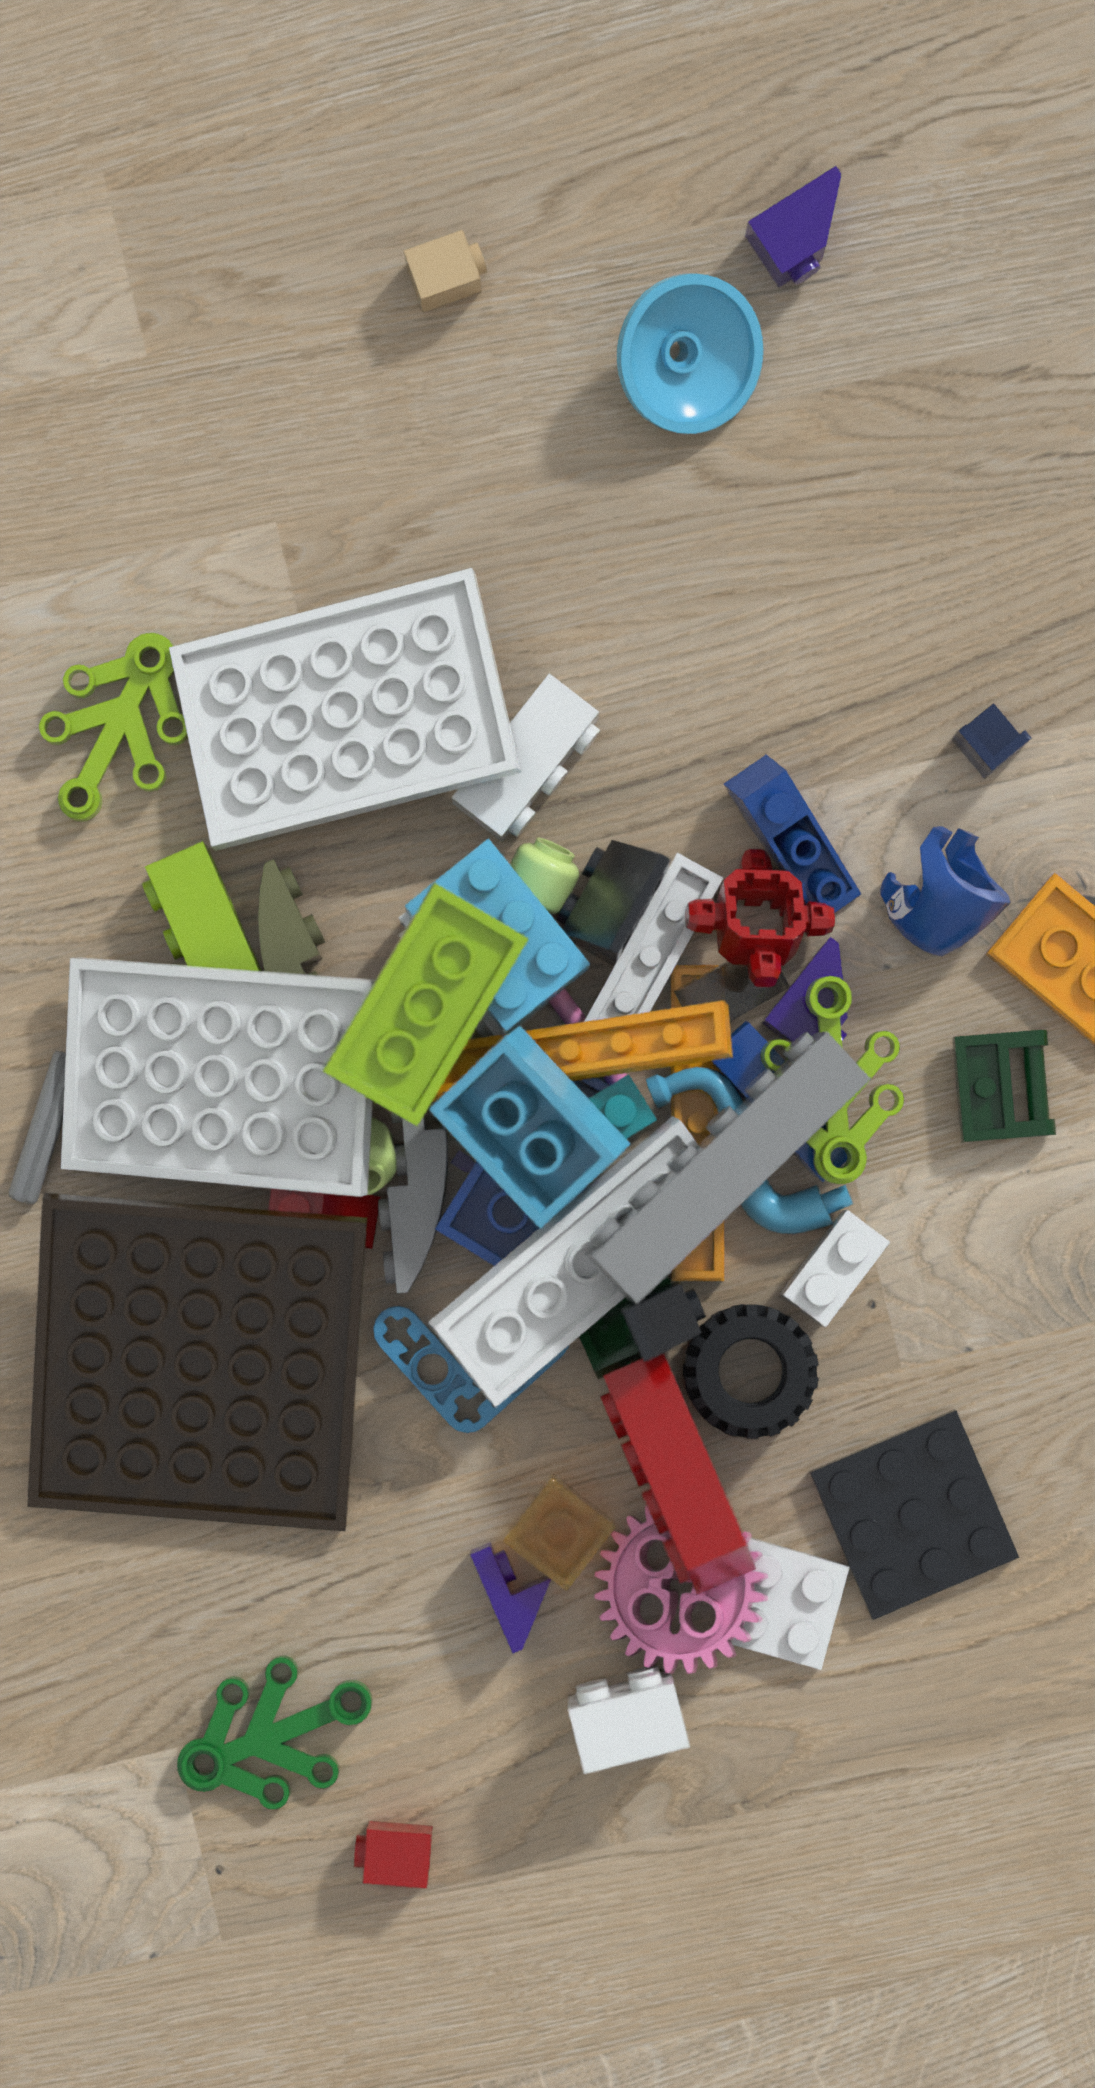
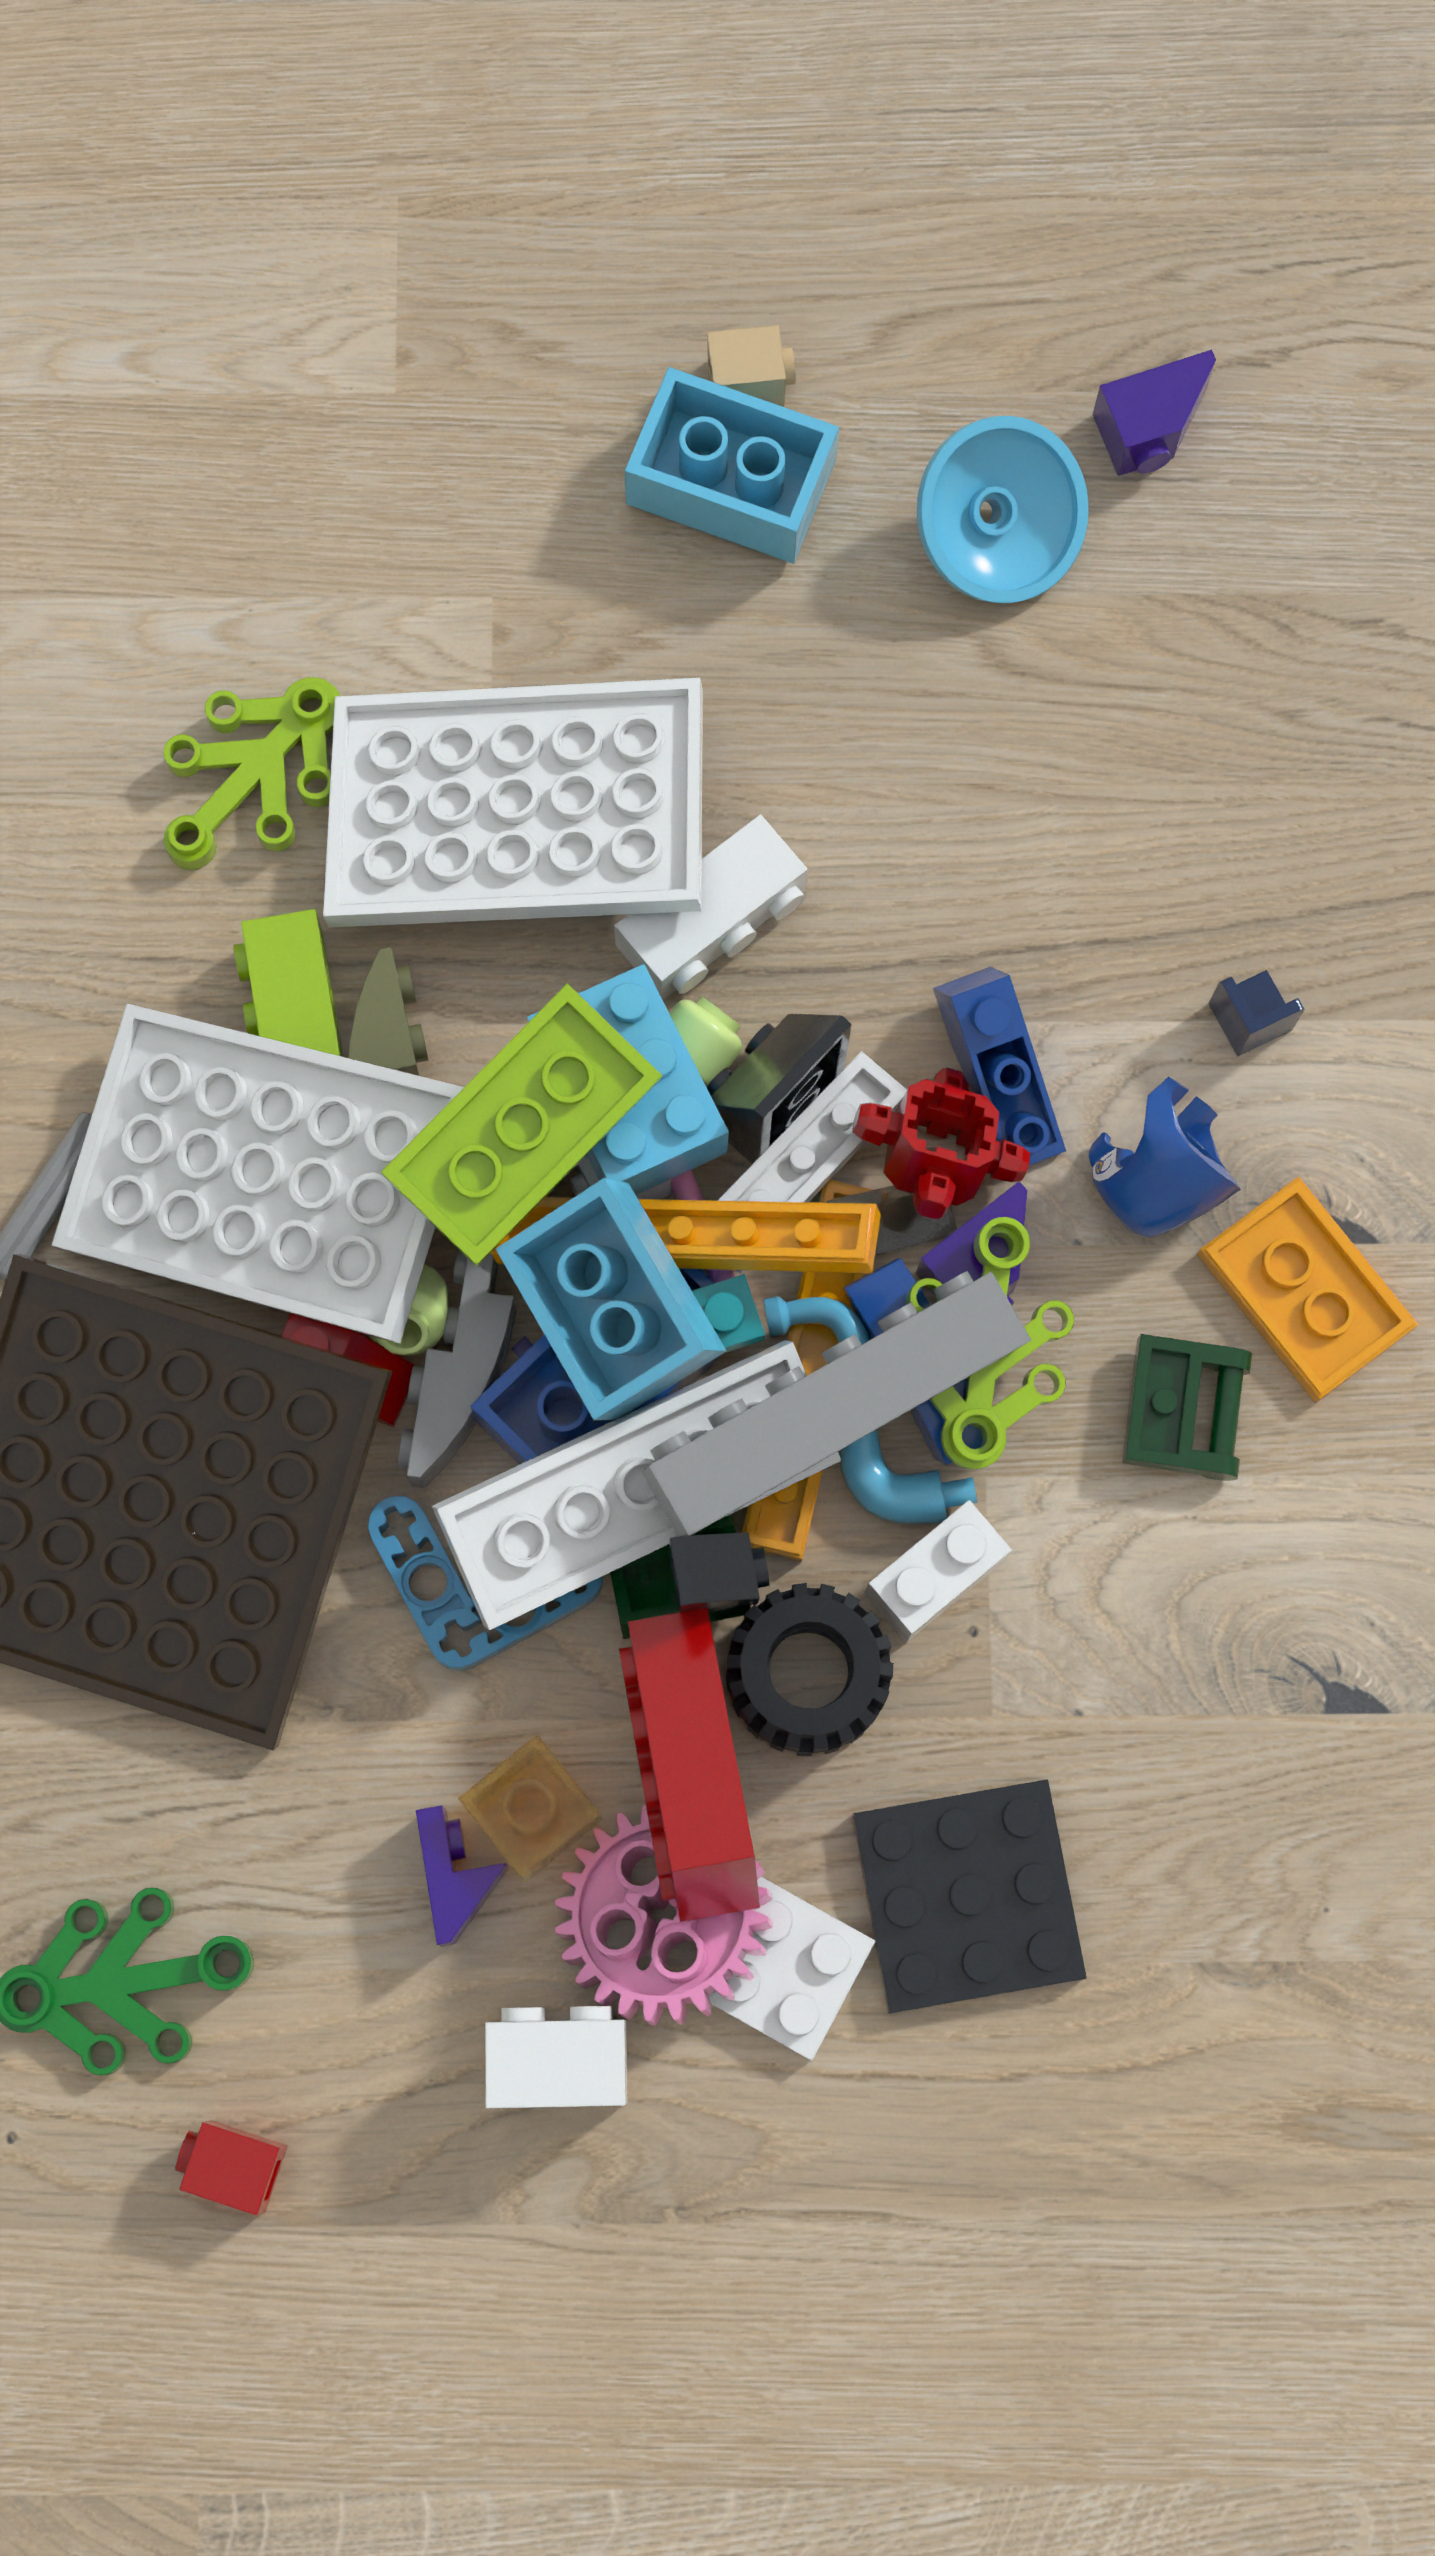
camera: 10 degrees right, 10 degrees down
(451, 365) = (731, 465): none -> medium azure brick

